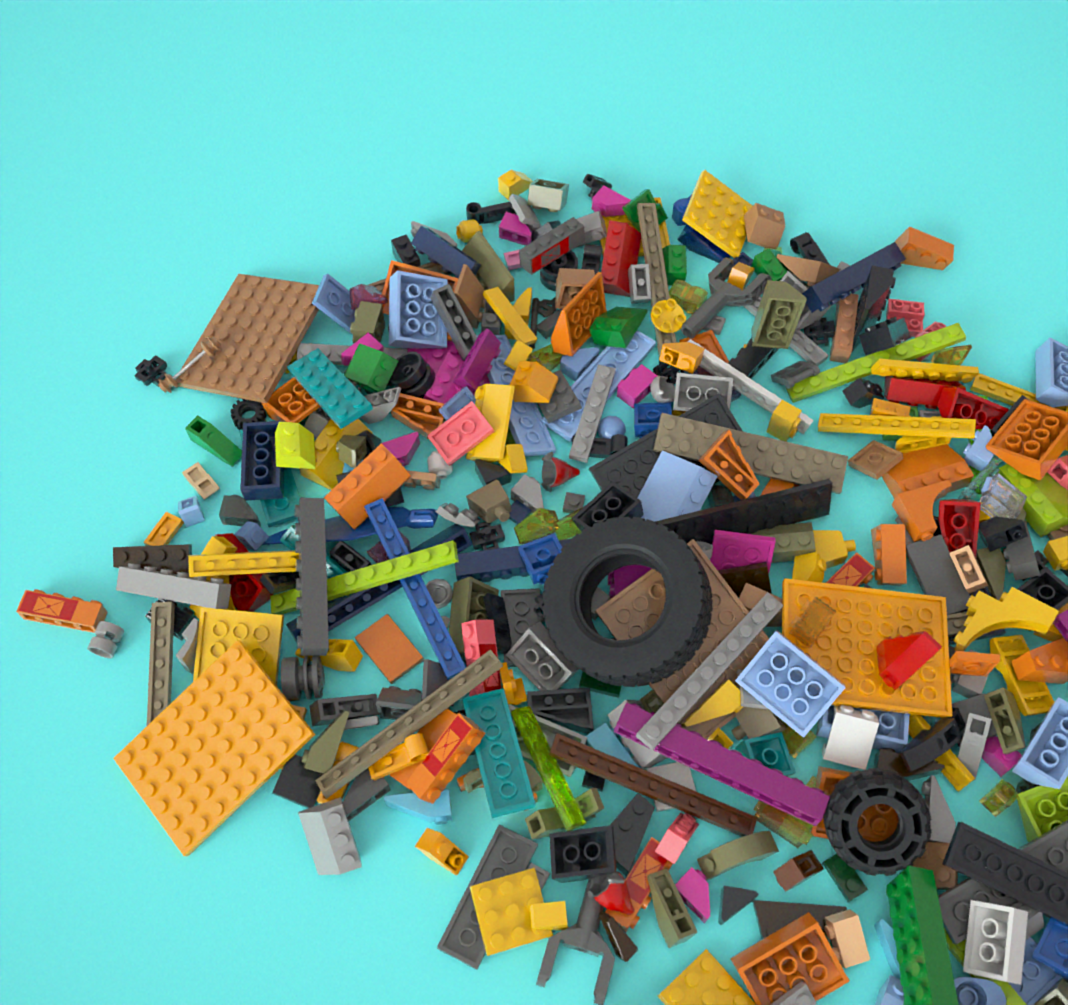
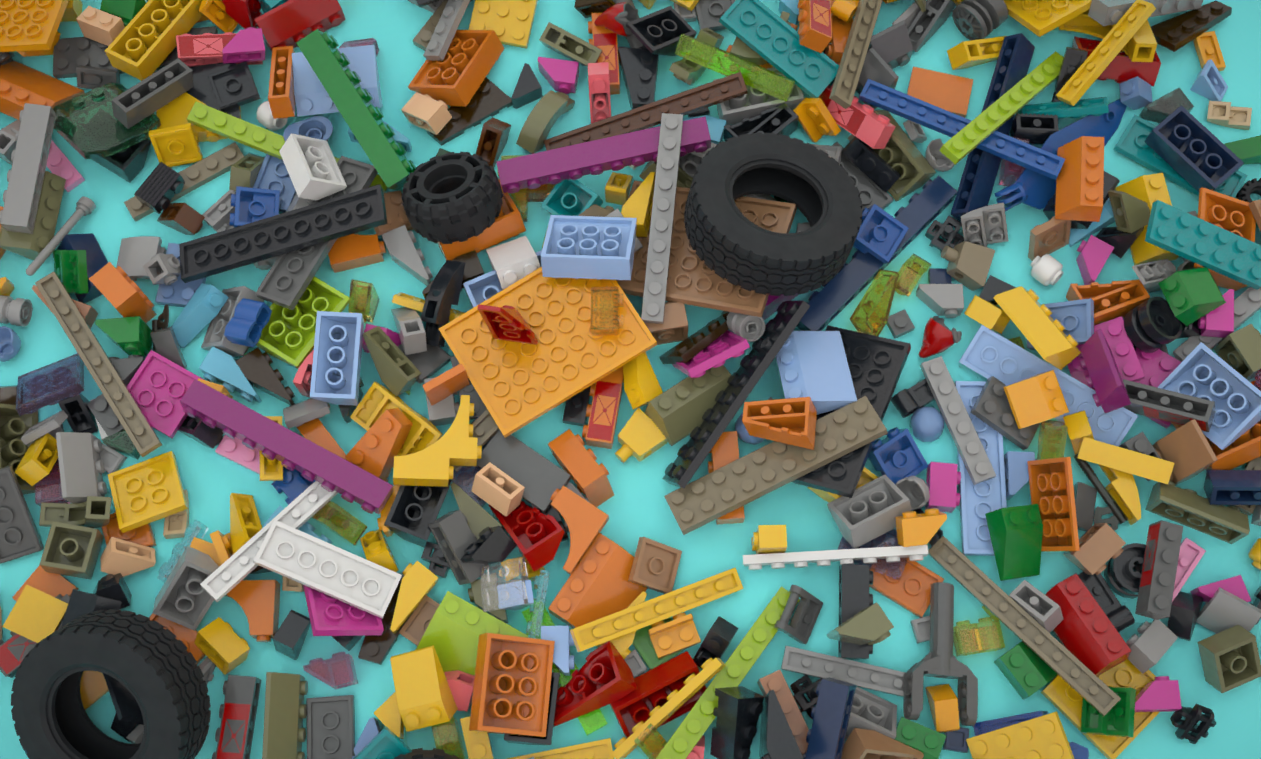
camera: 145 degrees right, 10 degrees up
(294, 446) = (1176, 170): neon yellow slope -> none
(312, 577) = (1048, 75): dark grey brick -> none
(460, 433) = (1051, 290): coral plate -> none
(608, 504) = (855, 306): black slope -> none
(667, 316) = (974, 582): yellow dish -> none

